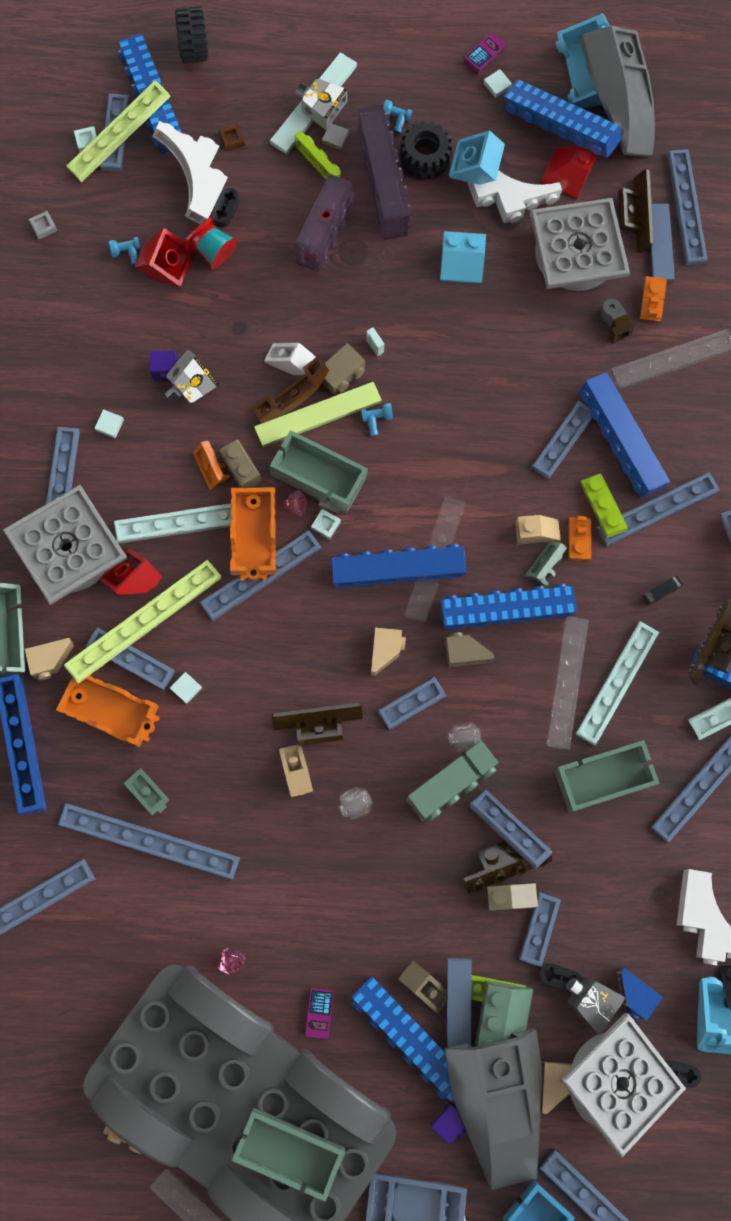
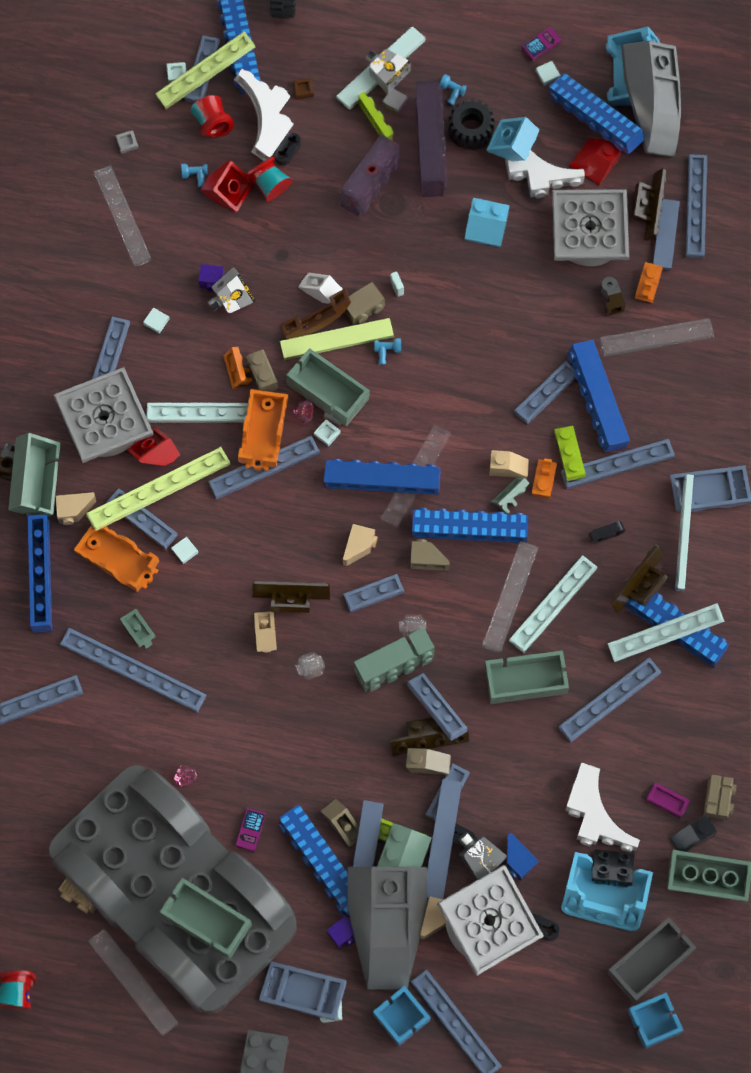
camera: 15 degrees right, 5 degrees down
(51, 310) = (122, 216): none -> clear tile
(134, 182) = (211, 116): none -> red hat
(546, 986) = (443, 838): none -> sand blue tile

